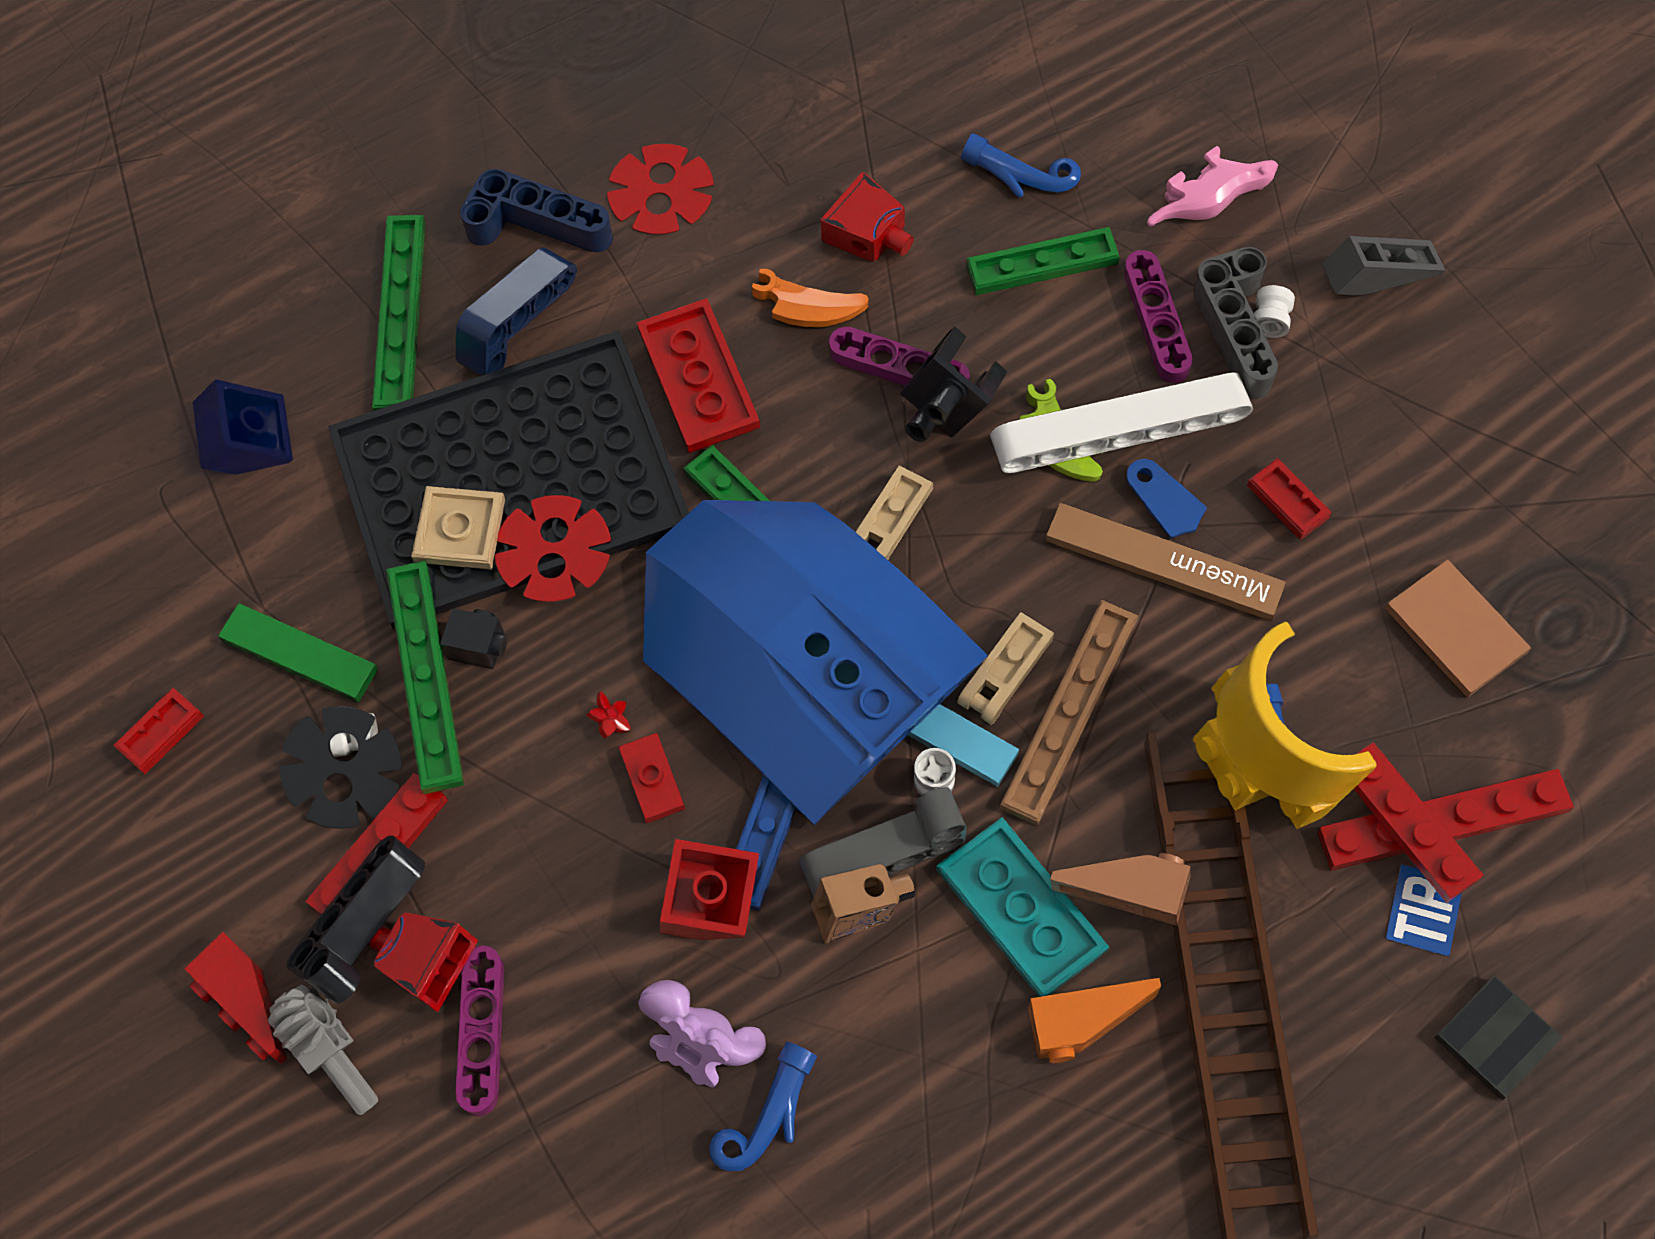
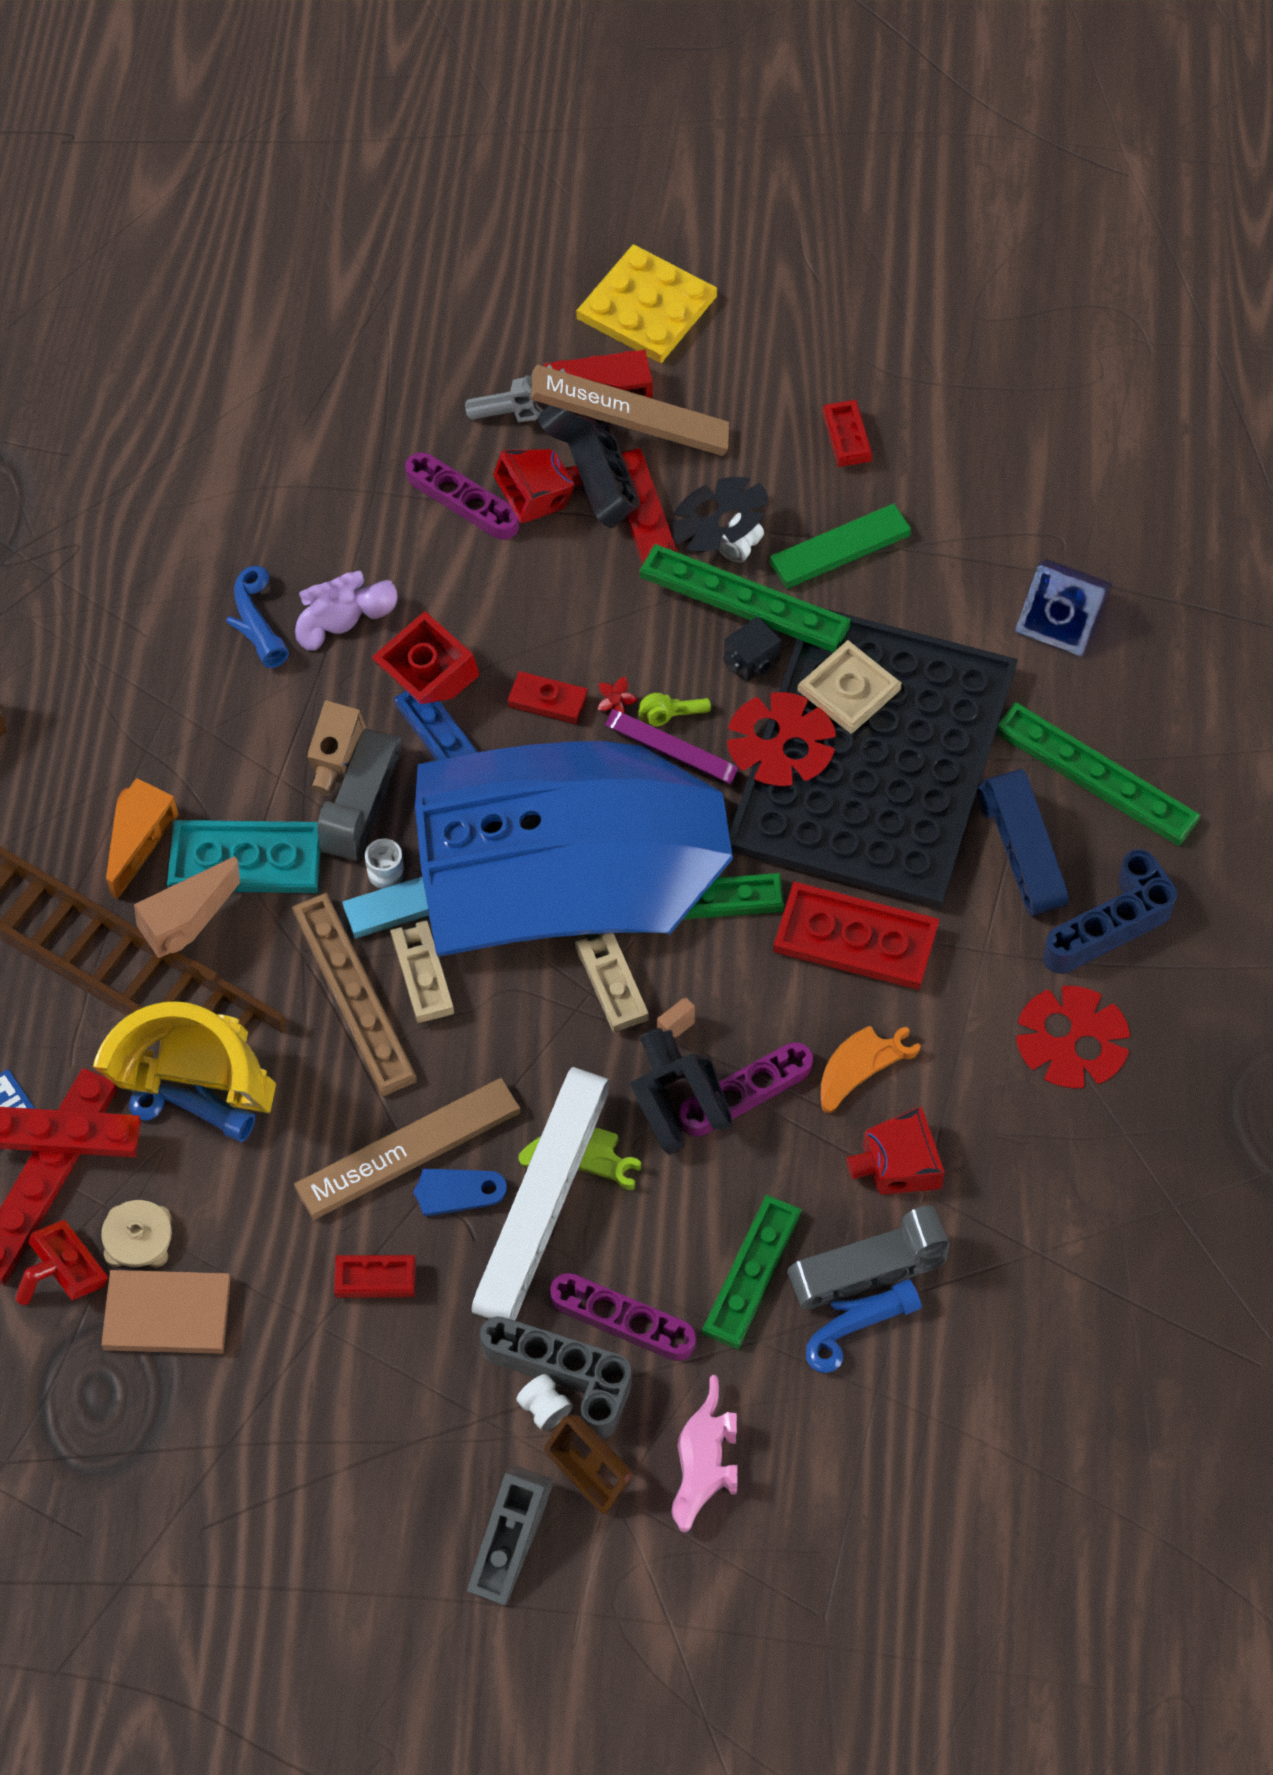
camera: 125 degrees right, 5 degrees down
(107, 1037) = (647, 303): none -> yellow plate
(282, 916) = (629, 410): none -> medium nougat tile
(596, 670) = (659, 708): none -> lime plate
(628, 632) = (671, 746): none -> magenta beam
(887, 444) = (678, 1017): none -> nougat tile
(966, 182) = (873, 1262): none -> dark grey beam
(1288, 248) = (586, 1471): none -> reddish brown piece
(1421, 703) = (137, 1234): none -> tan piece
(1499, 727) = (63, 1258): none -> red plate

